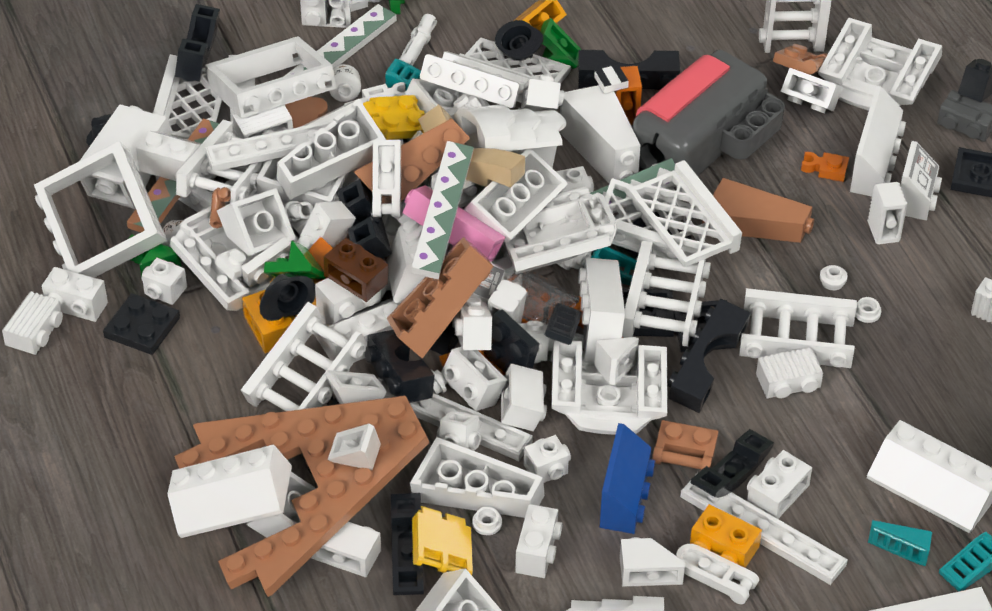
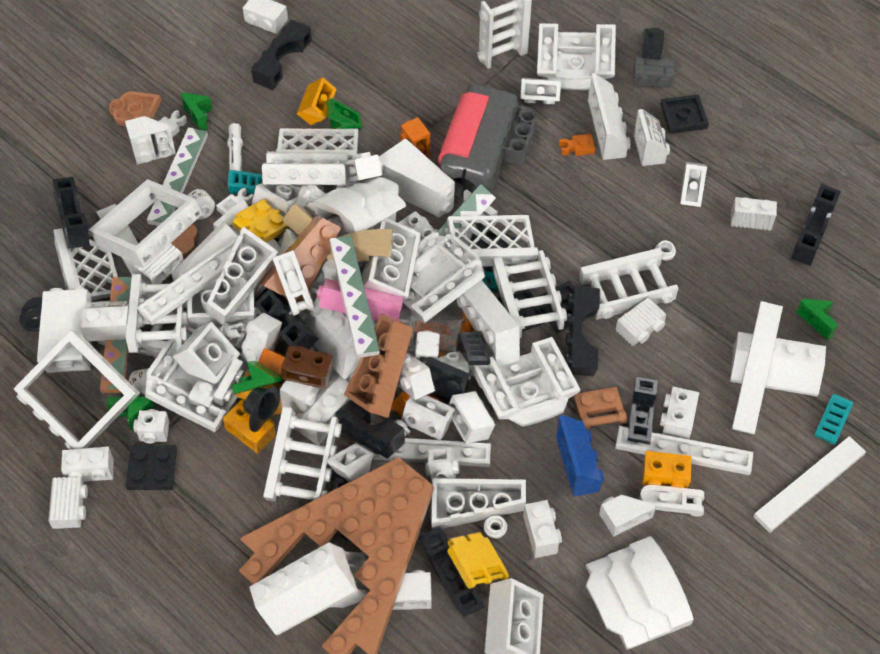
camera: 25 degrees left, 10 degrees up
(219, 198) = (168, 351): nougat arm -> none
(356, 447) = (385, 517): white slope -> none
(518, 40) = (316, 123): black piece -> none
(547, 458) = (514, 460): white brick -> none
(611, 78) = (406, 135): white tile -> none
(616, 357) = (520, 360): white slope -> none
(654, 71) = (381, 126): black arch -> none
(705, 208) = (524, 216): white fence -> none
(763, 213) = (553, 202): nougat slope -> none
(799, 59) = (514, 67): nougat plate -> none
(833, 277) = (626, 236): white plate -> none
(887, 212) = (643, 170): white brick -> none
(899, 465) = (757, 368): none -> white tile
(902, 541) = (786, 423): teal slope -> none
(945, 250) = (693, 184): none -> white slope

